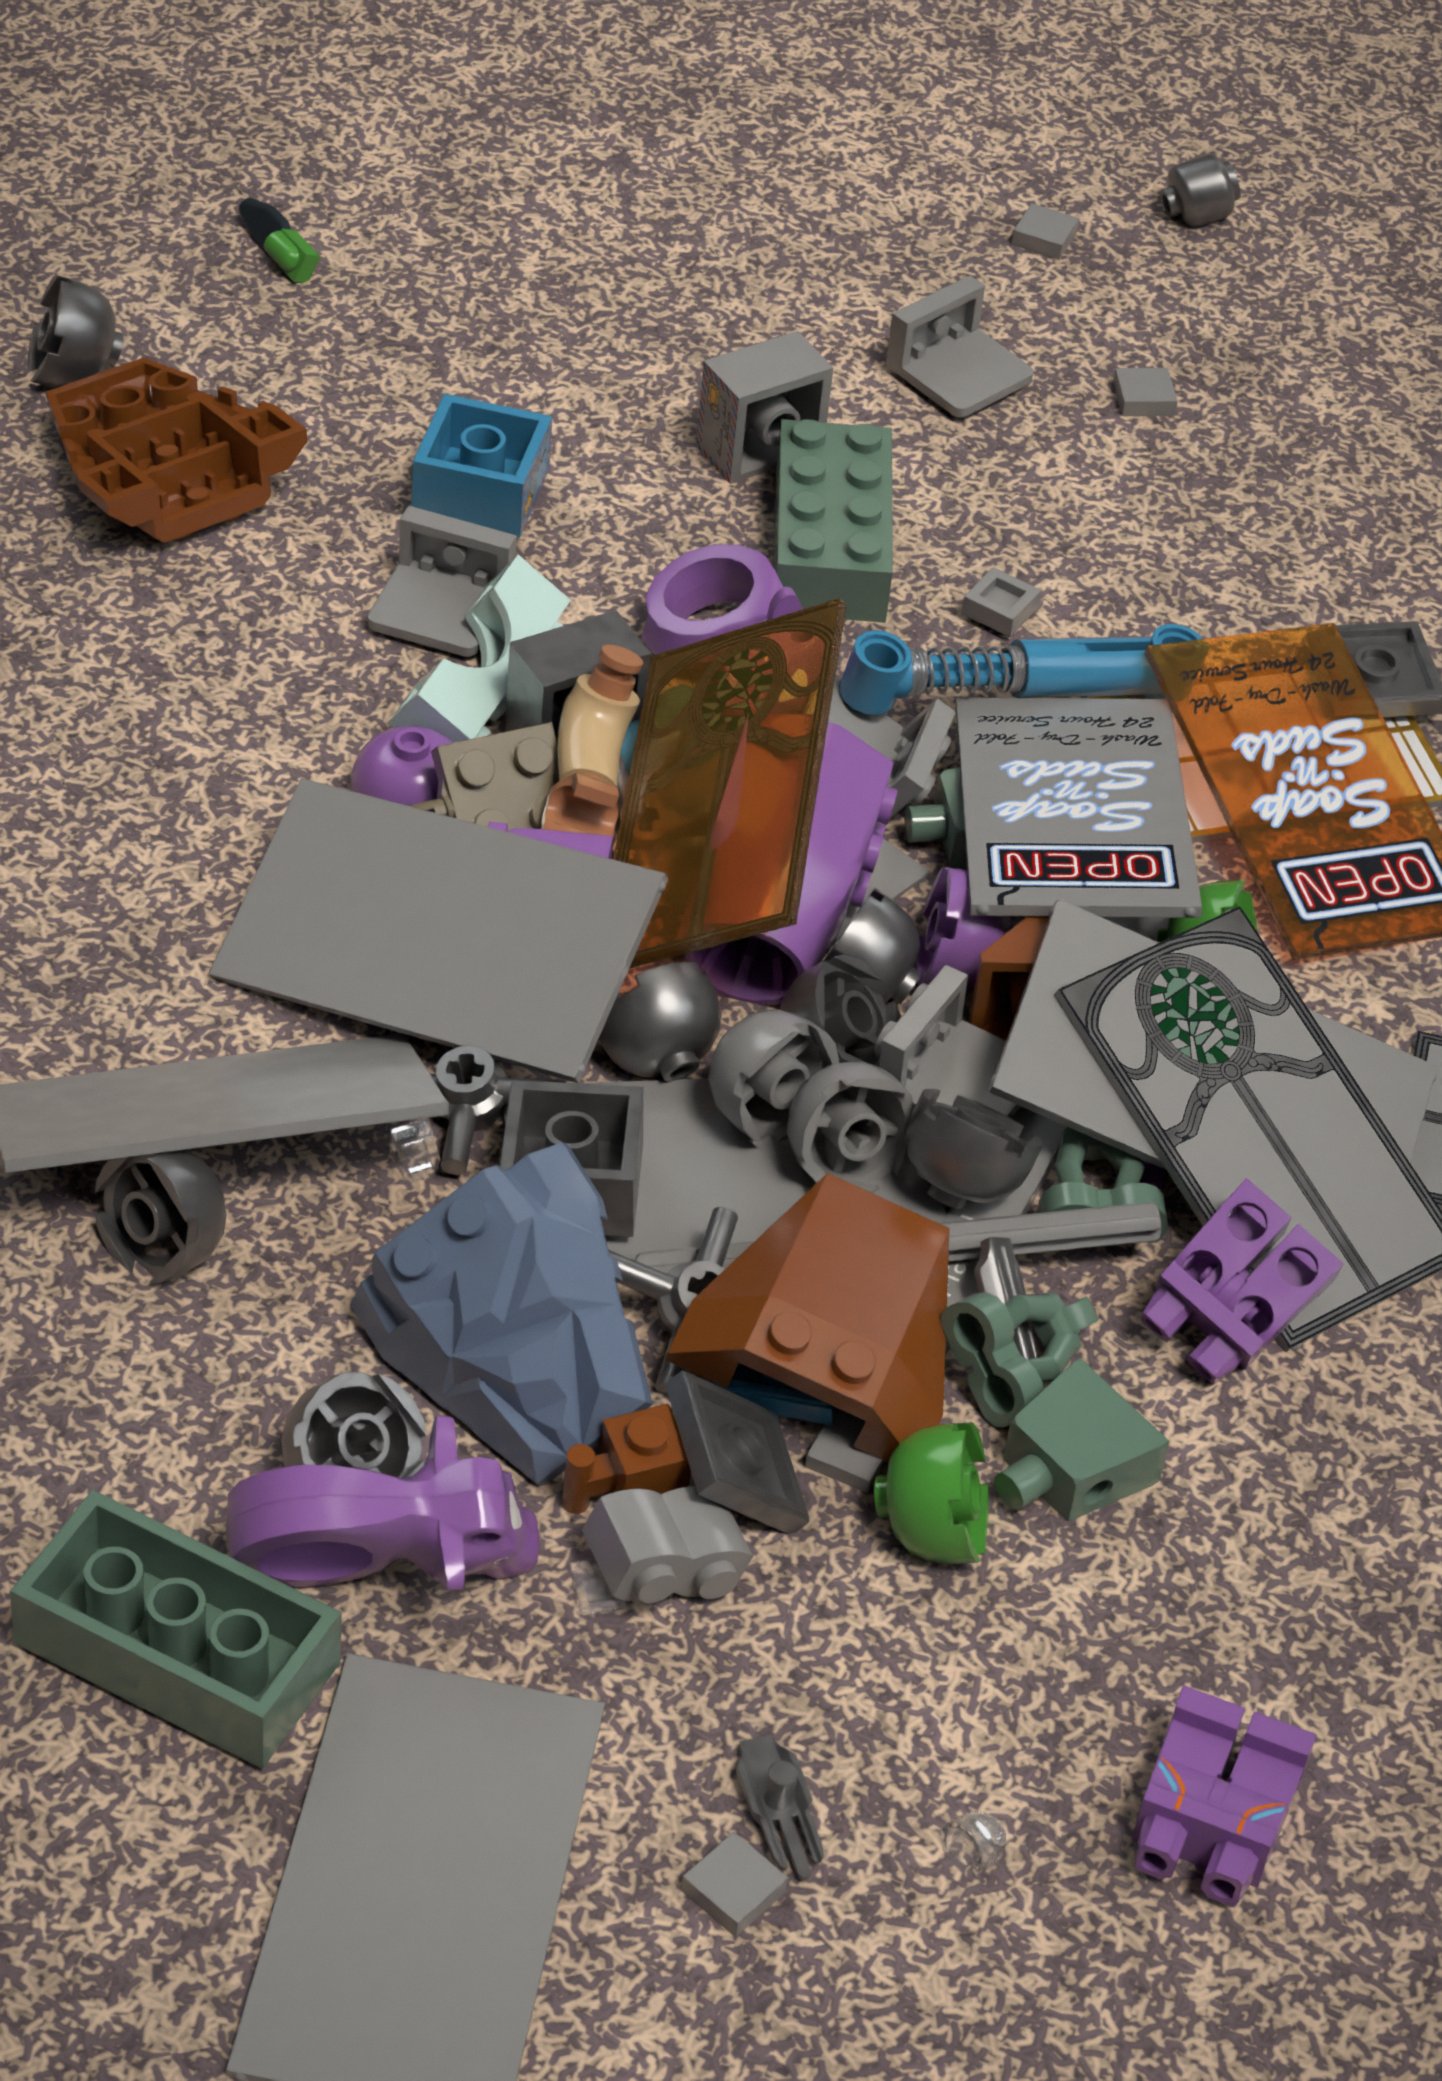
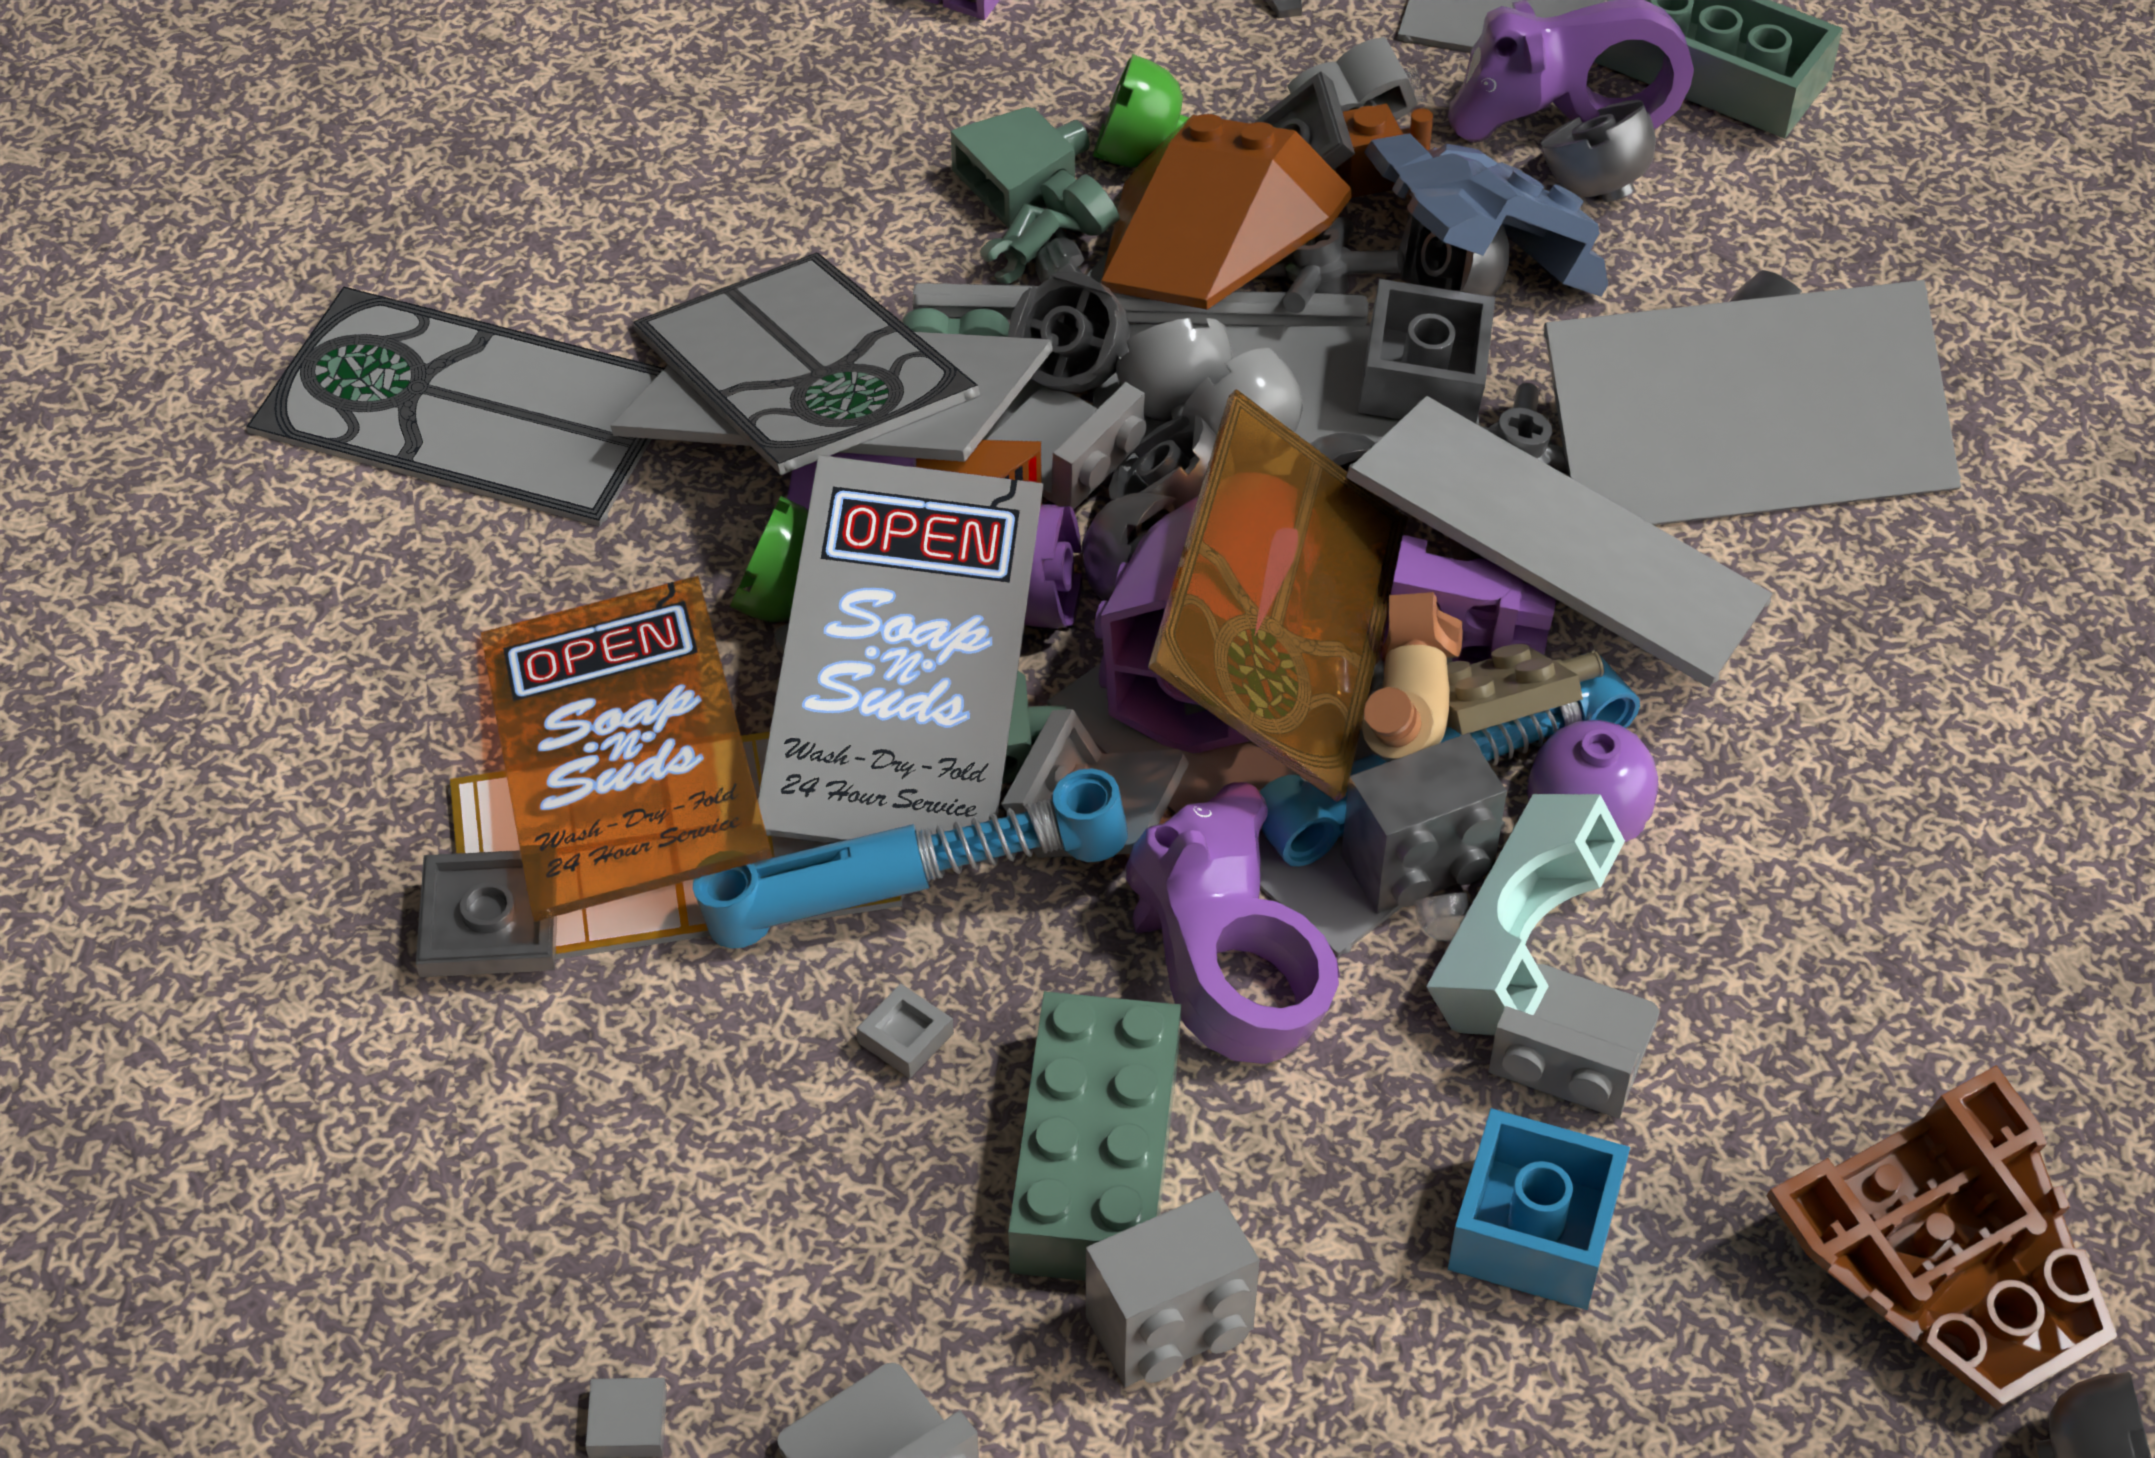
camera: 170 degrees left, 5 degrees up
(1227, 1303) = (843, 244): medium lavender hips -> none

